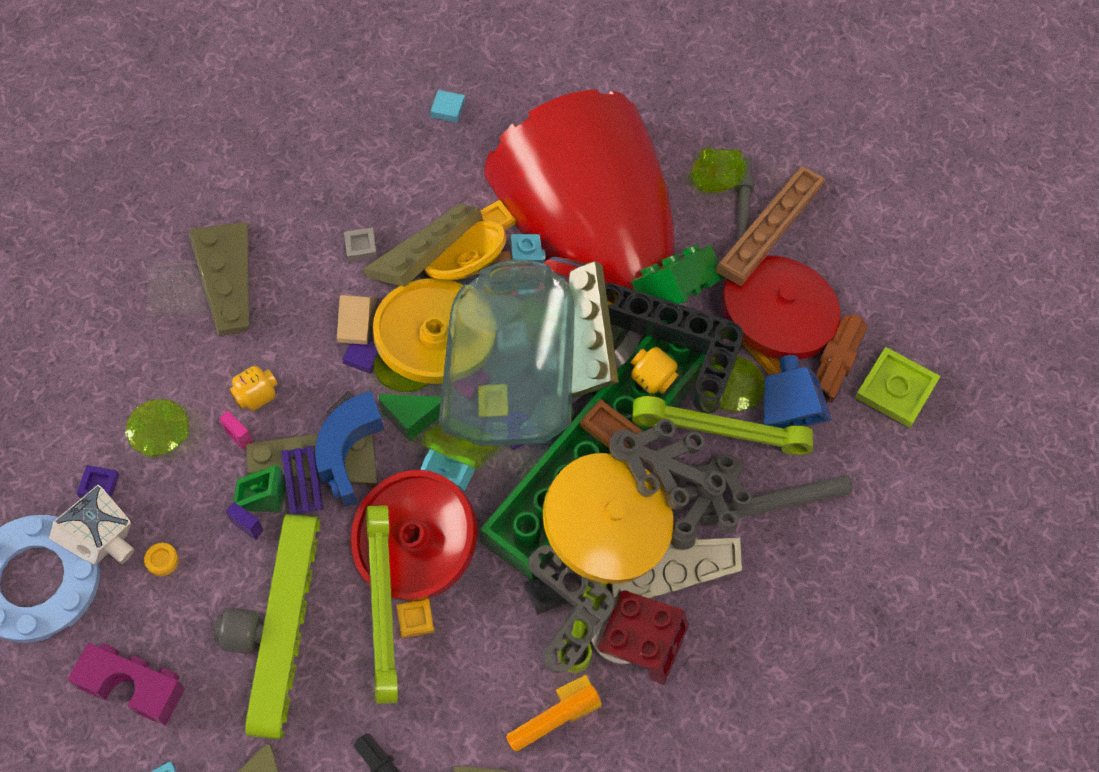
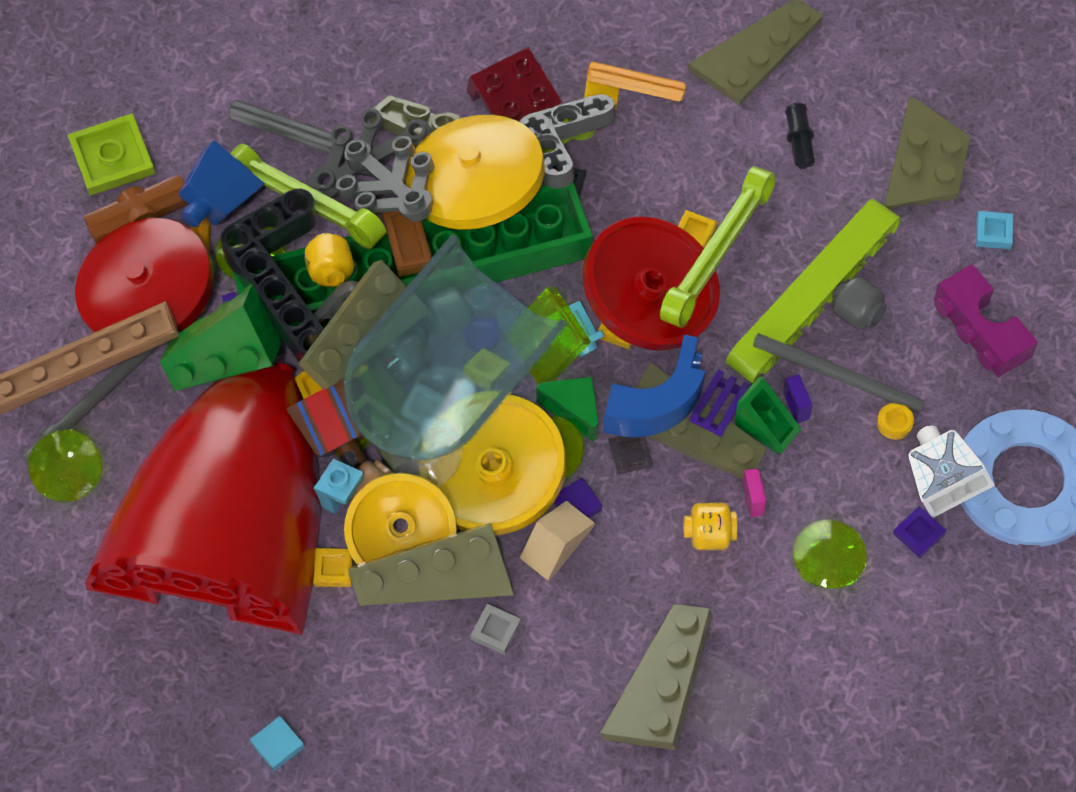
camera: 145 degrees left, 0 degrees up
(222, 557) = (837, 372): none -> dark grey piece

